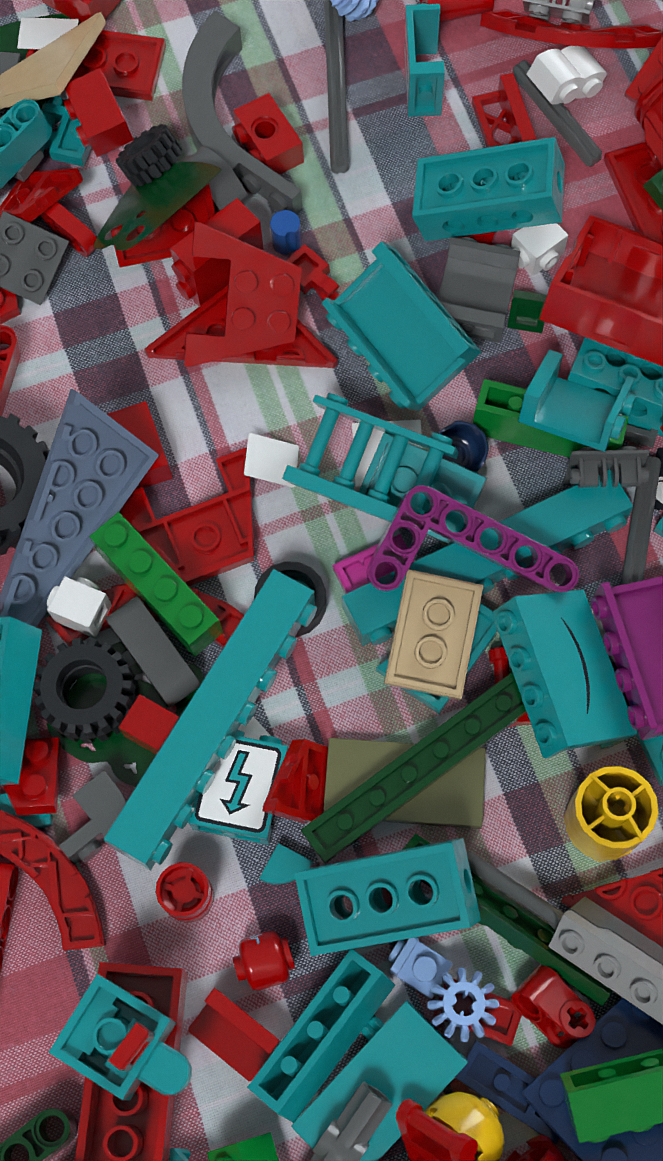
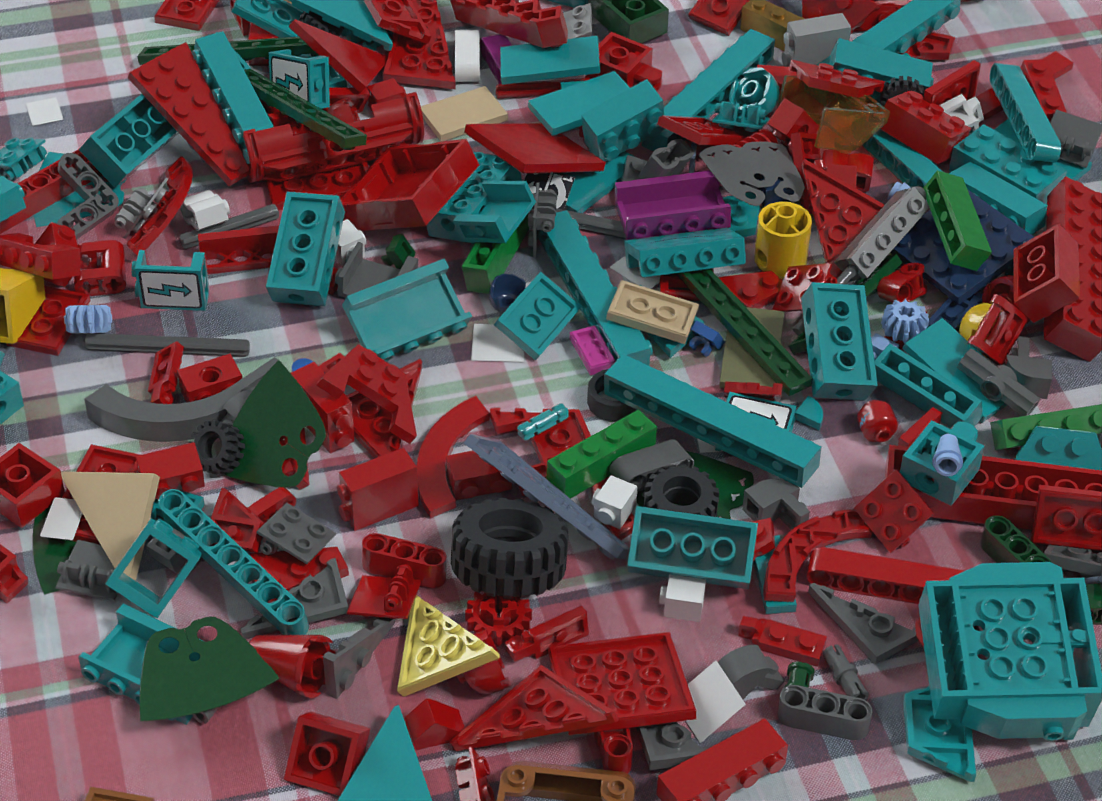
camera: 90 degrees left, 25 degrees down
(69, 973) = (893, 511): none -> red hinge
(80, 1037) = (948, 457): none -> light blue cone
(86, 331) = (378, 489): none -> red brick
(131, 1047) = (953, 424): red tile -> none
(148, 724) = (713, 463): red brick -> none
(184, 892) = (835, 455): red wheel -> none
(186, 399) = (437, 445): none -> red tile
(217, 510) = (543, 421): none -> teal axle
(269, 458) = (499, 399): white sticker -> none
(298, 87) = (164, 373): none -> red hinge
(342, 487) = (535, 351): teal fence -> none
(413, 716) = (706, 336): none -> blue tile
(469, 537) = (575, 288): magenta beam -> none
(515, 849) = (797, 282): none -> red hinge
(529, 784) = (754, 289): none -> red wing

